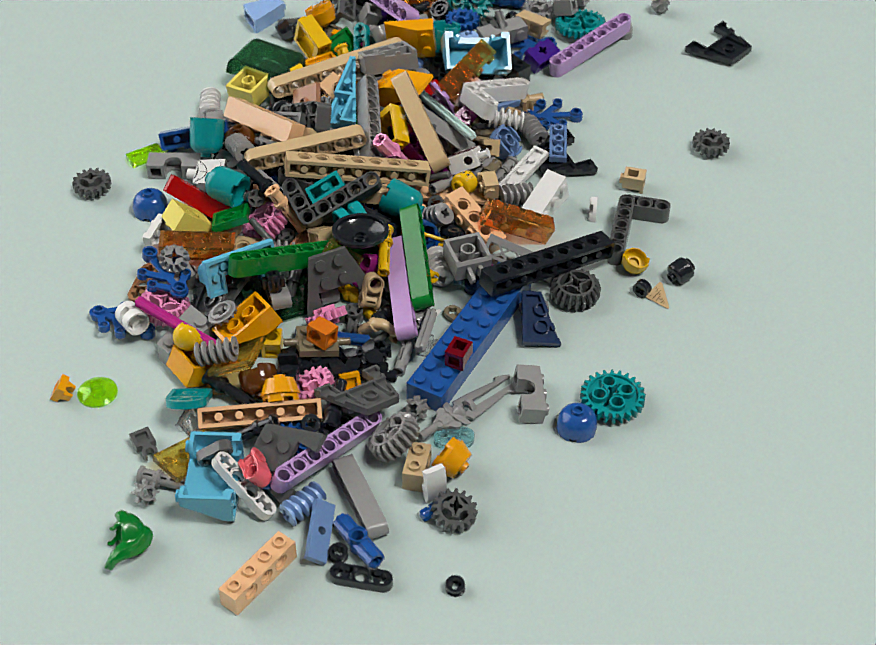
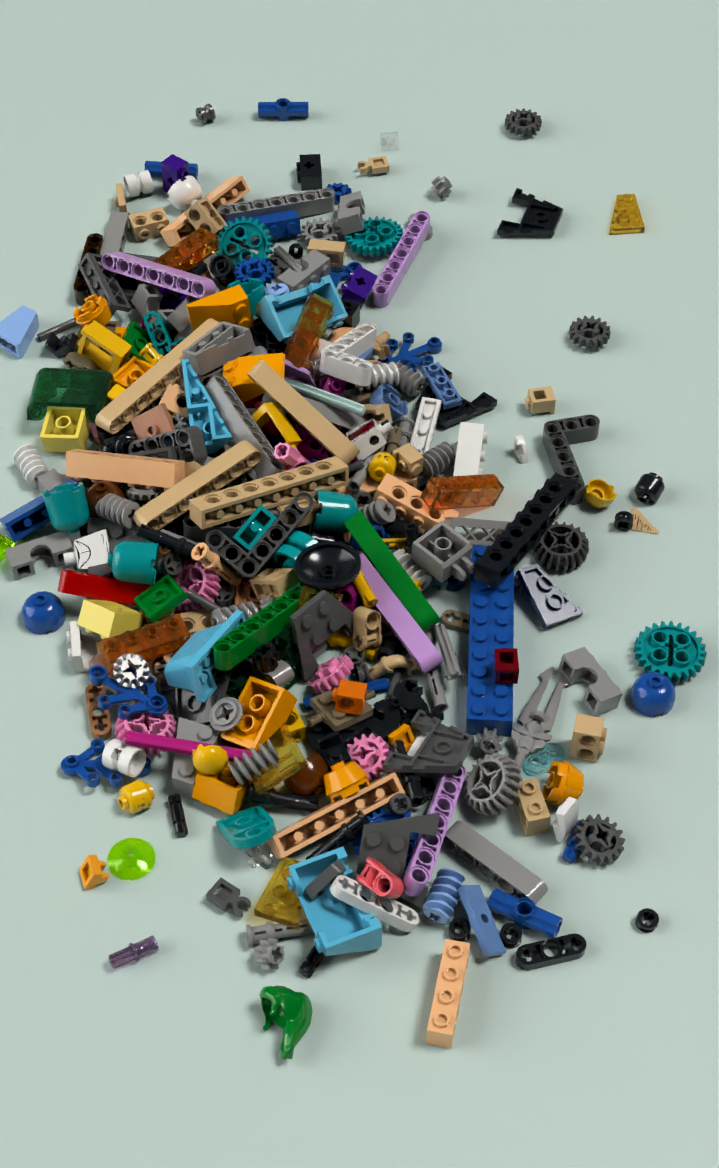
camera: 25 degrees left, 5 degrees up
(51, 453) = (133, 952): none -> clear purple axle
(127, 350) = (136, 796): none -> yellow head
(149, 374) = (177, 815): none -> black axle
(169, 514) = (313, 960): none -> black axle
(291, 44) = (77, 361): none -> dark tan beam
(300, 527) = (459, 922): none -> black bush
(494, 432) = (588, 738): none -> tan brick
(805, 67) = (626, 216): none -> clear yellow wing

